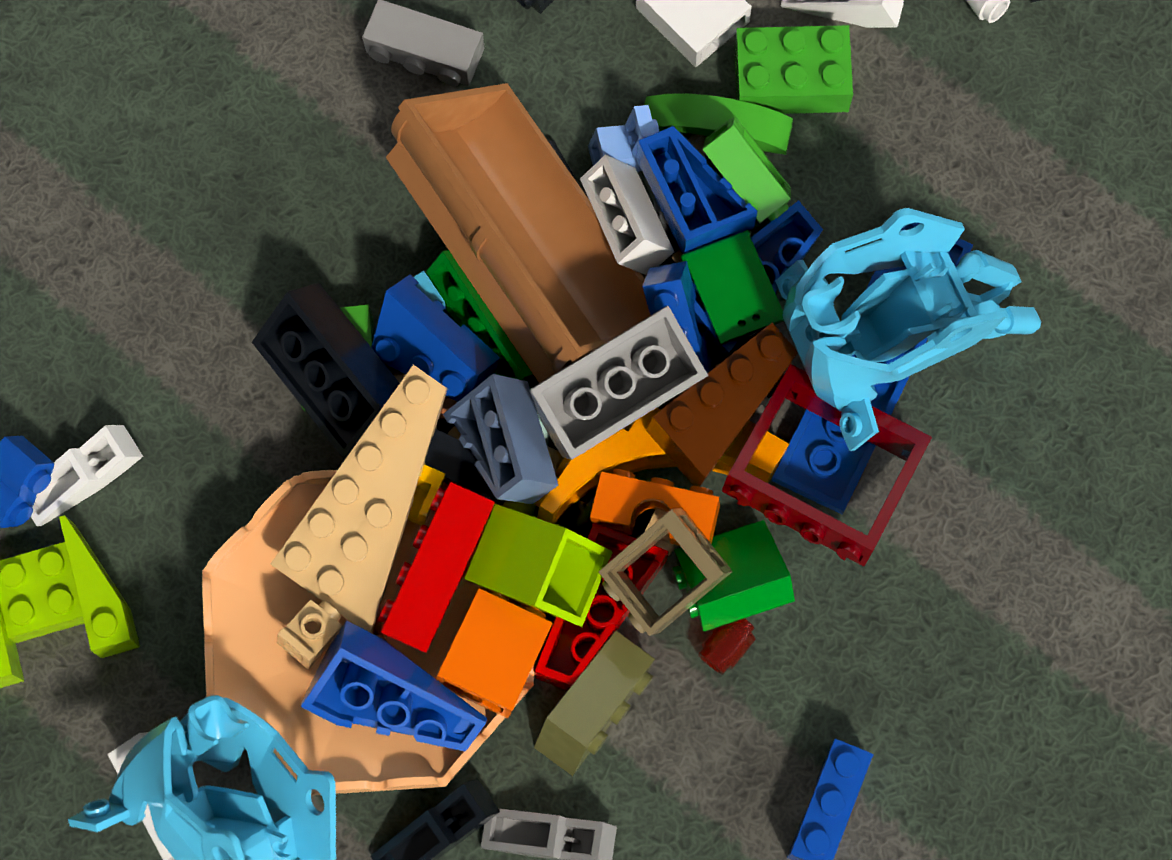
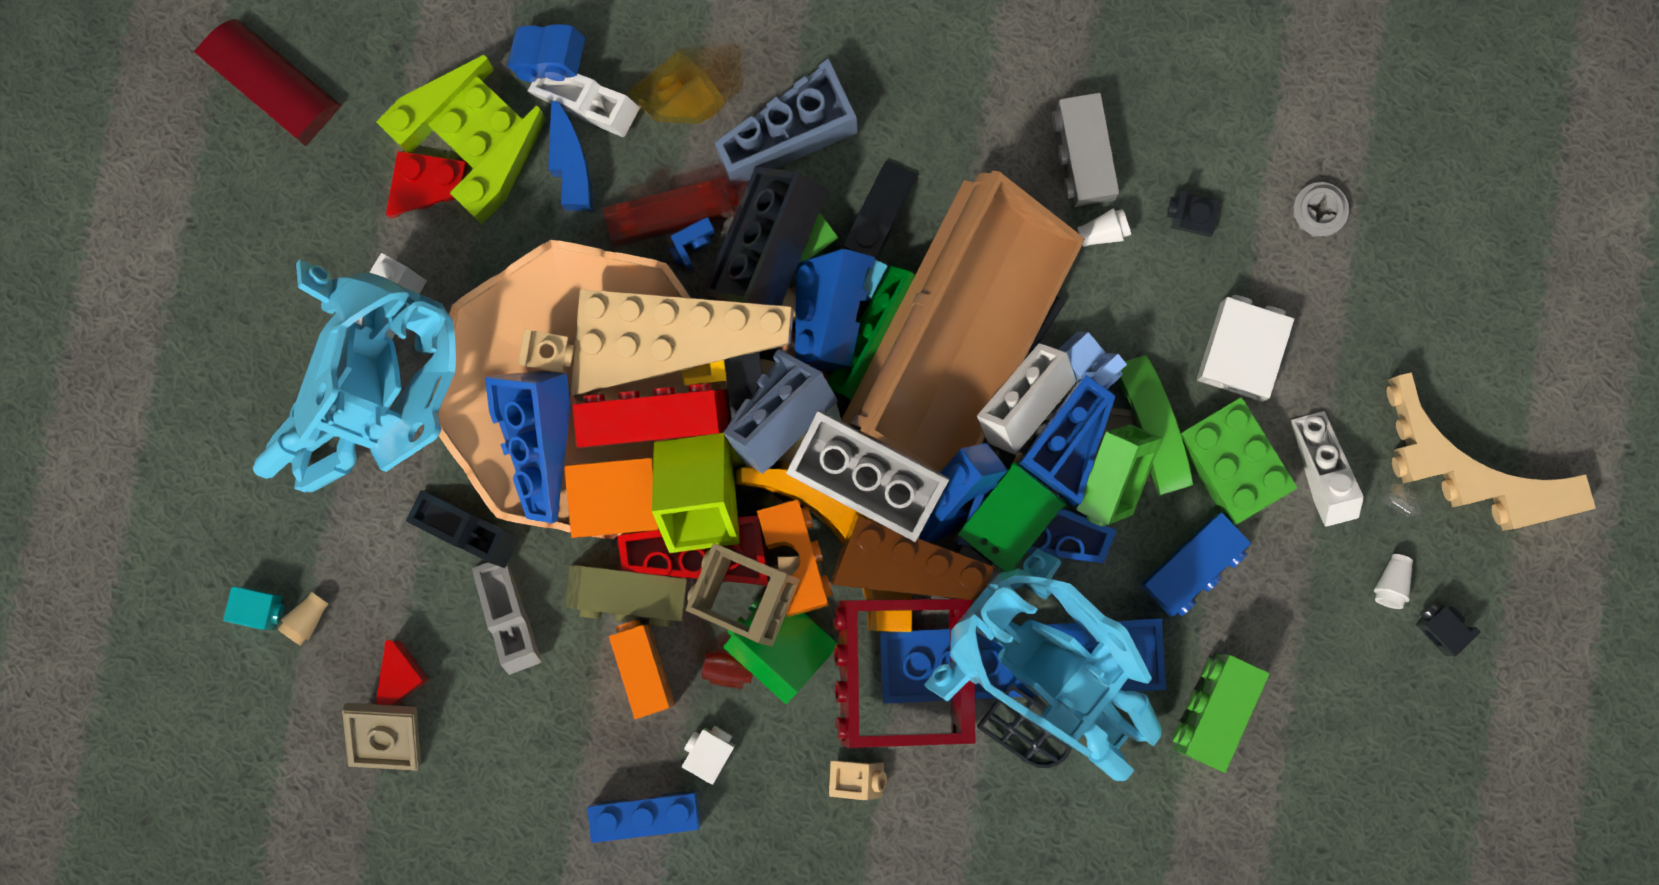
camera: 60 degrees right, 10 degrees up
(61, 680) = (422, 182): none -> red wing
(132, 378) = (677, 92): none -> clear yellow slope
(133, 521) = (569, 162): none -> blue slope
(234, 292) = (789, 127): none -> sand blue wedge
(243, 452) = (669, 211): none -> clear red brick
(282, 442) = (695, 237): none -> blue bracket
(363, 254) = (880, 210): none -> black slope
(508, 62) = (1106, 228): none -> white cone
(681, 723) = (641, 669): none -> orange brick
(801, 708) = (708, 753): none -> white brick
(870, 156) = (1196, 565): none -> blue brick
(905, 579) = (857, 780): none -> tan bracket
(960, 393) = (1011, 730): none -> black window
(1020, 204) = (1219, 711): none -> bright green brick

